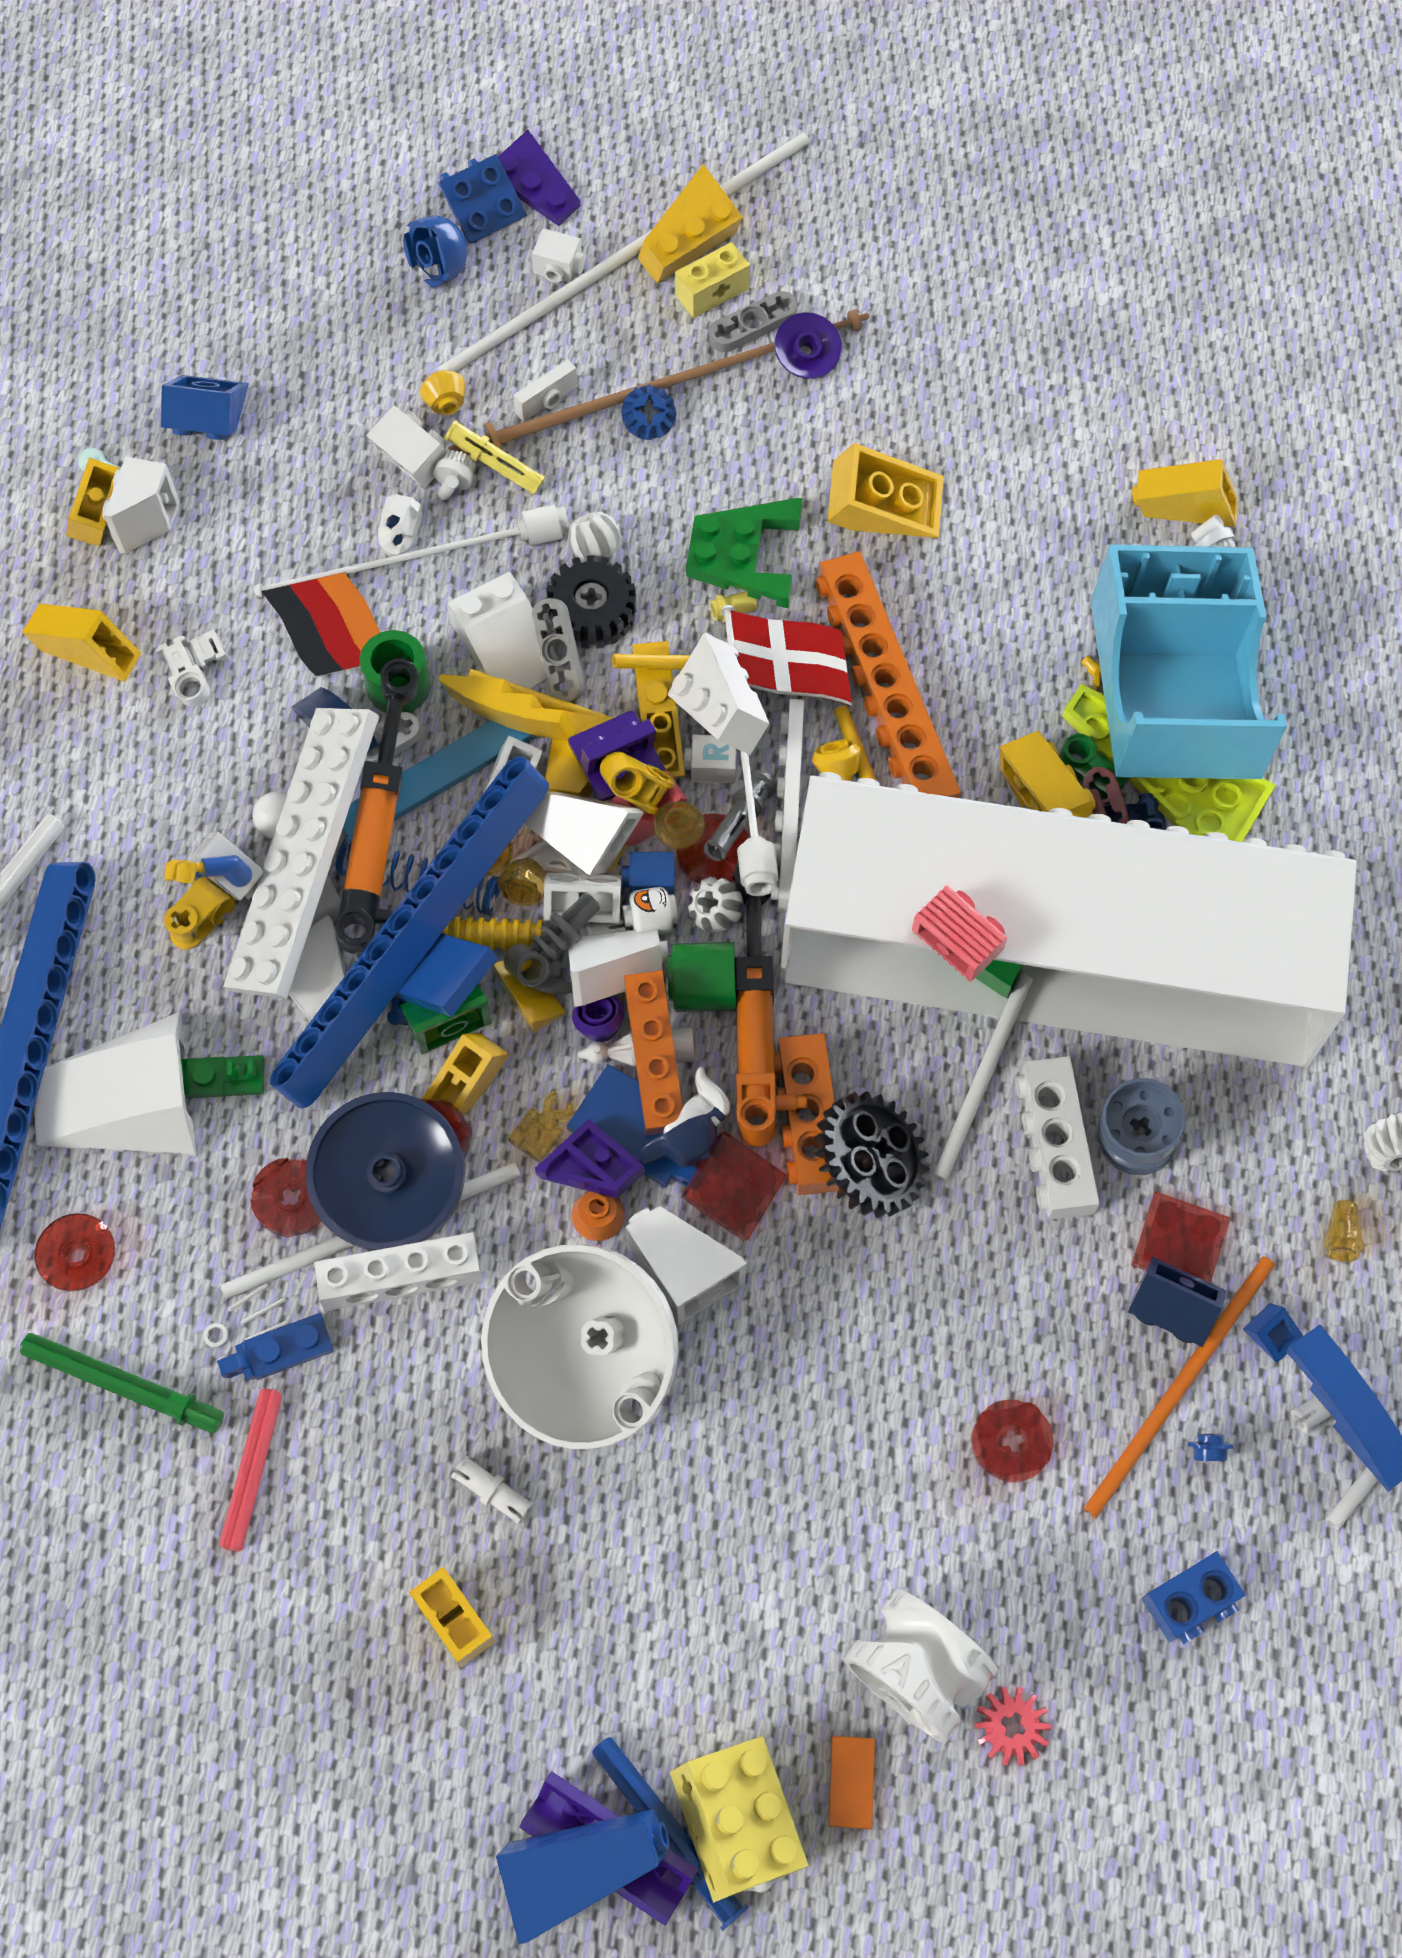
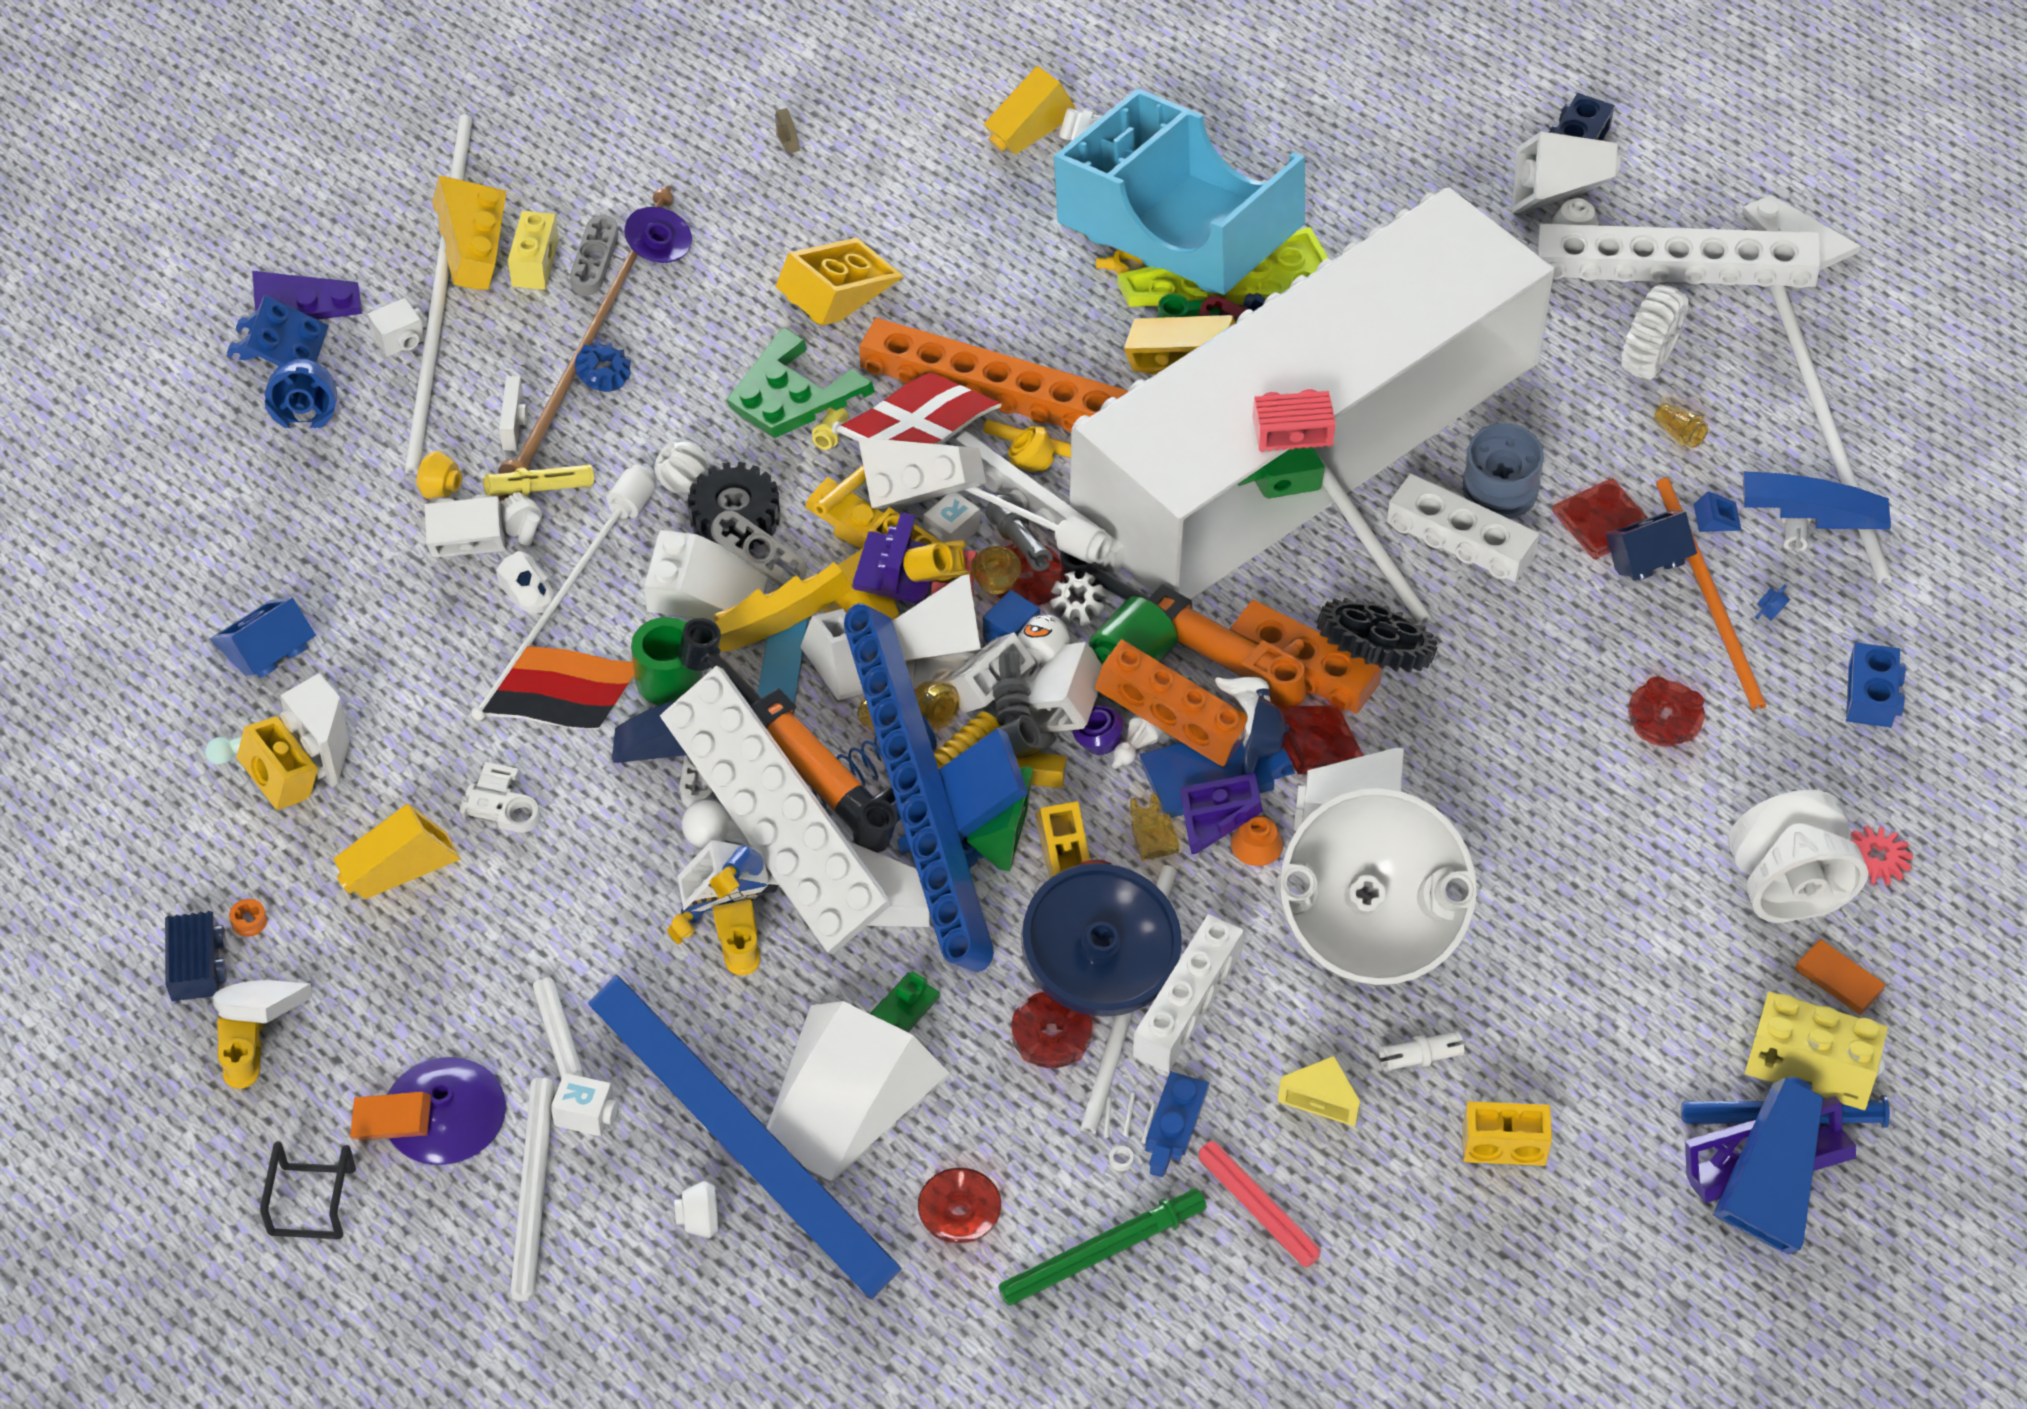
camera: 50 degrees left, 15 degrees down
(389, 1441) = (1322, 1091): none -> light yellow slope
(1004, 340) = (786, 131): none -> dark tan tile

